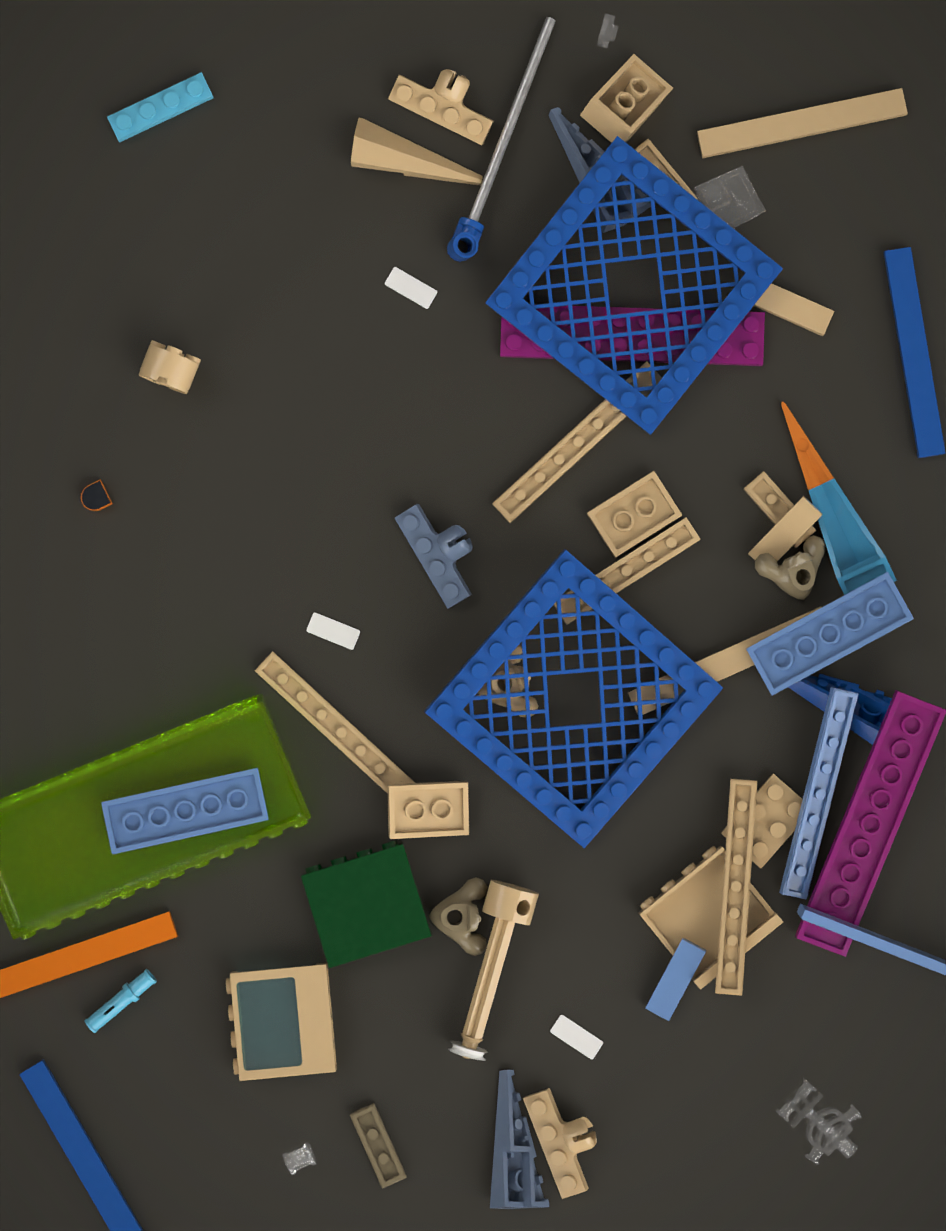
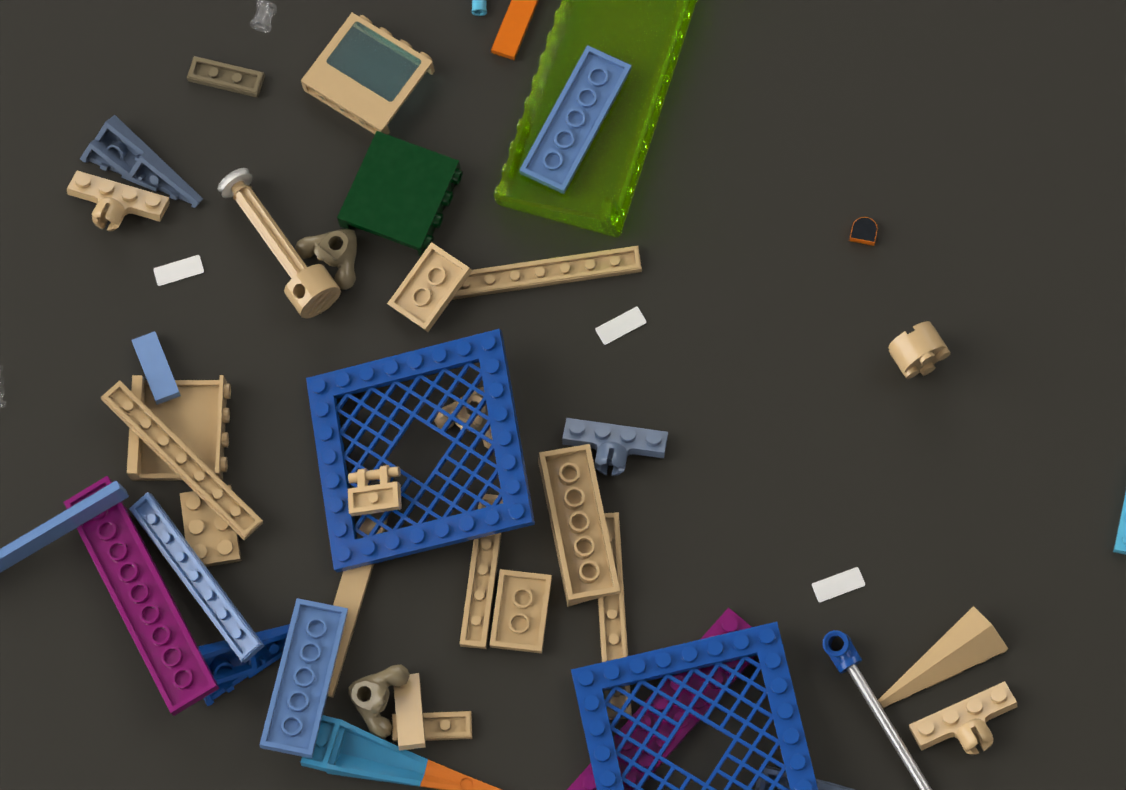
camera: 135 degrees right, 15 degrees down
(528, 525) = (578, 524): none -> tan arch
(645, 700) = (377, 497): none -> tan plate

